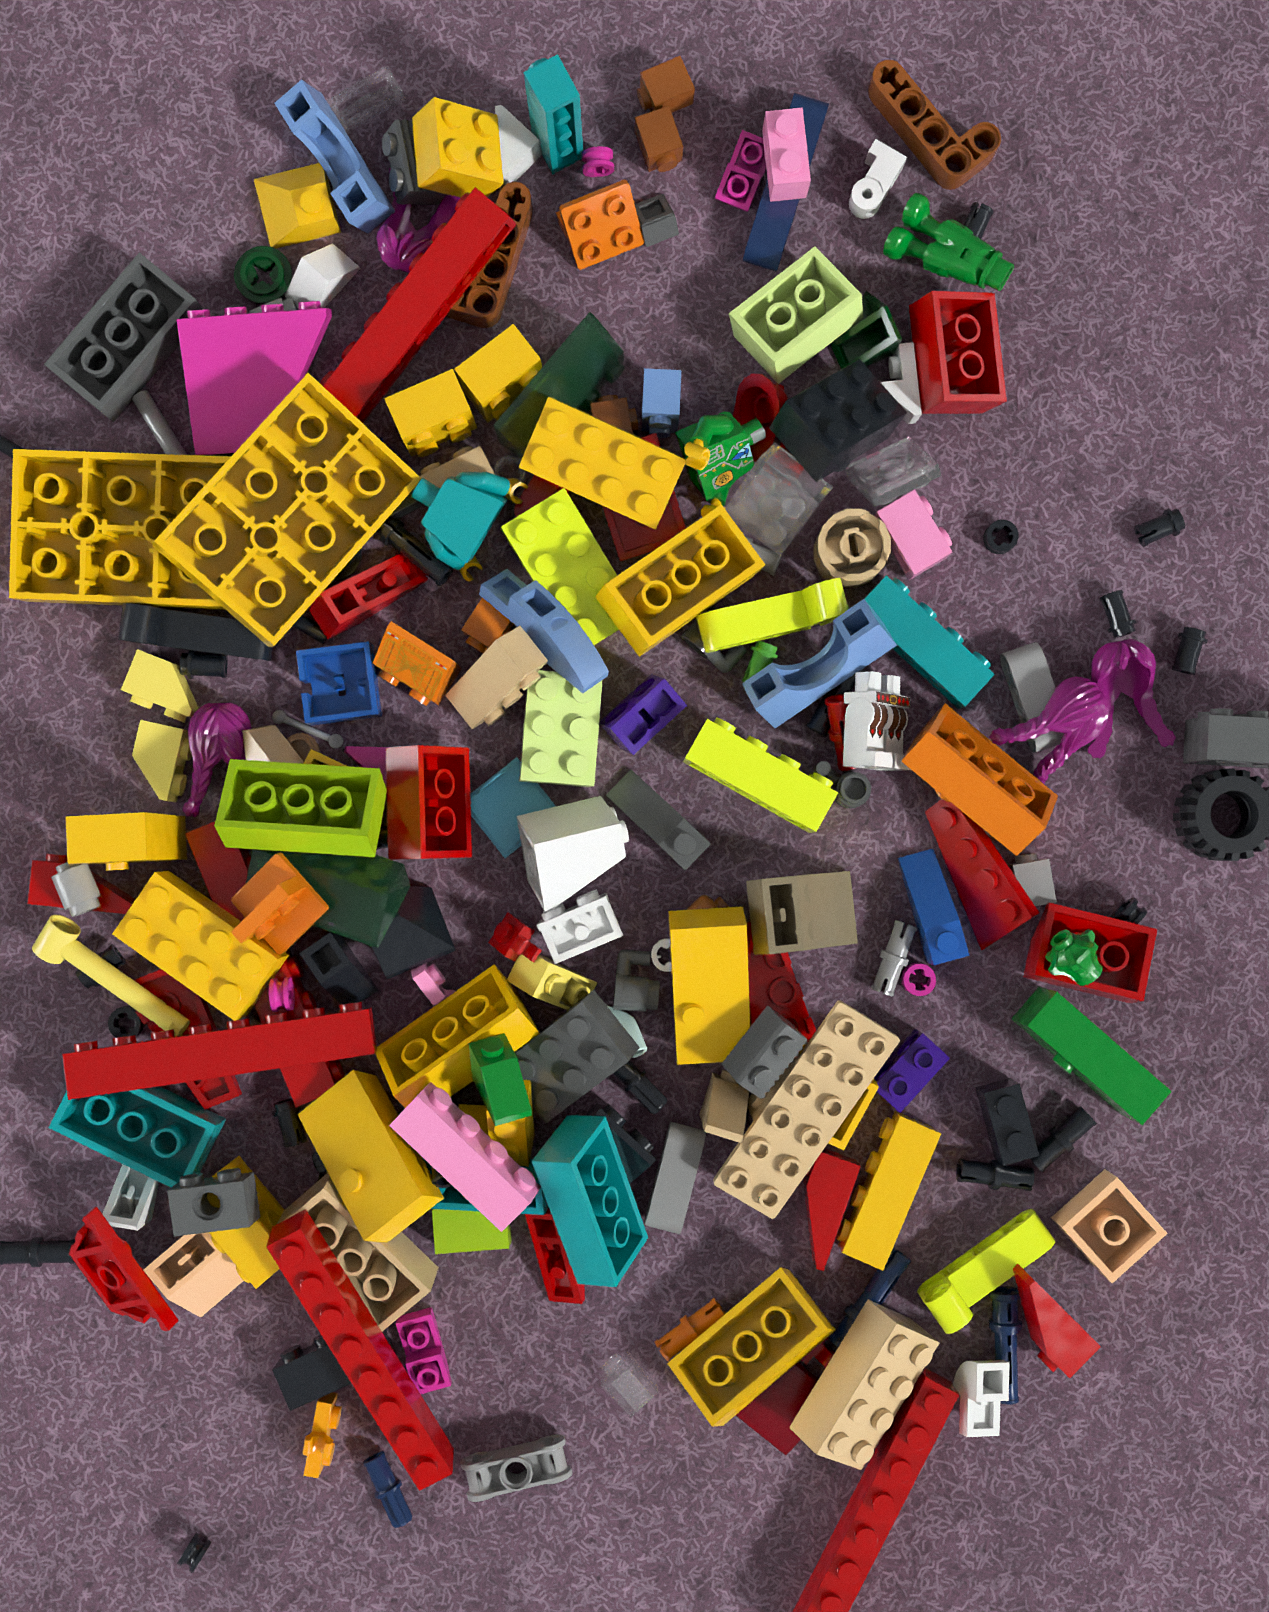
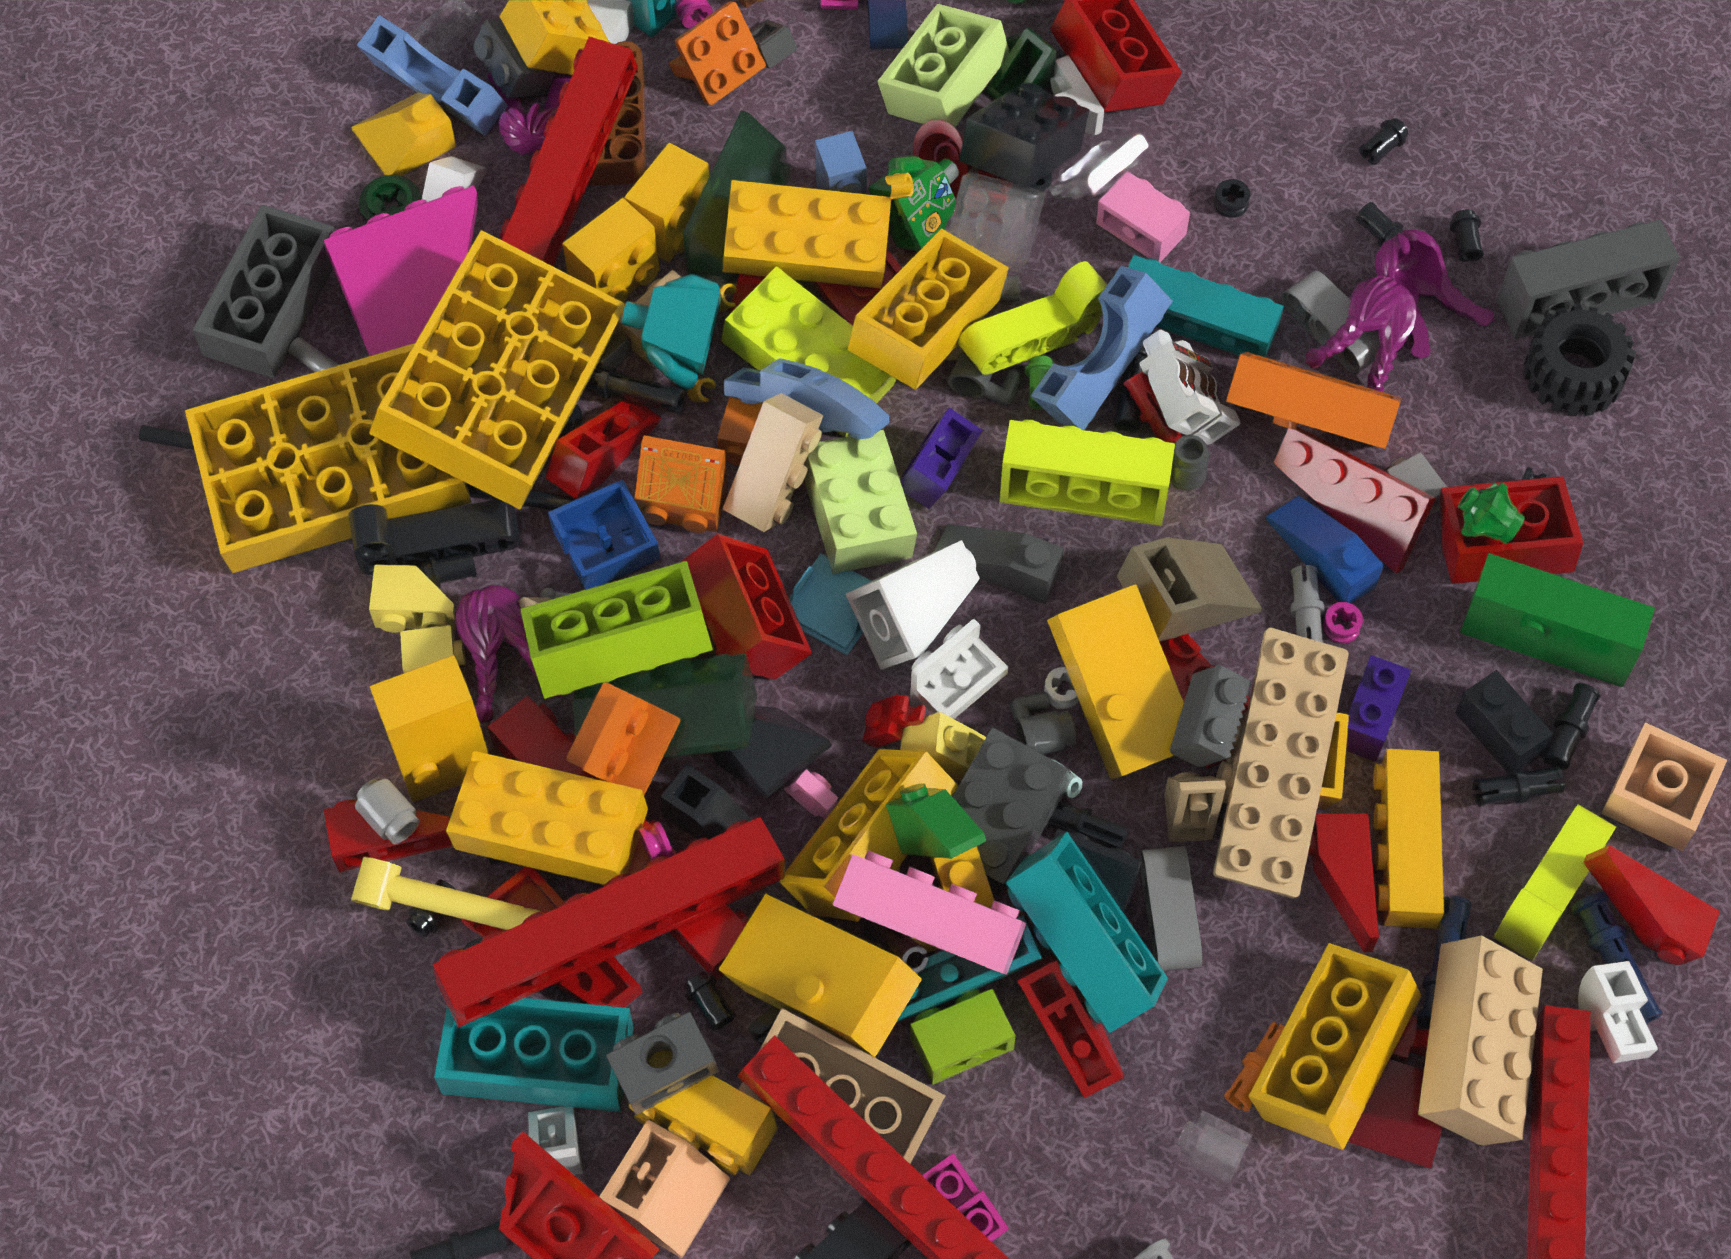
camera: 15 degrees left, 25 degrees down
(852, 547) = (1089, 235): tan brick -> none

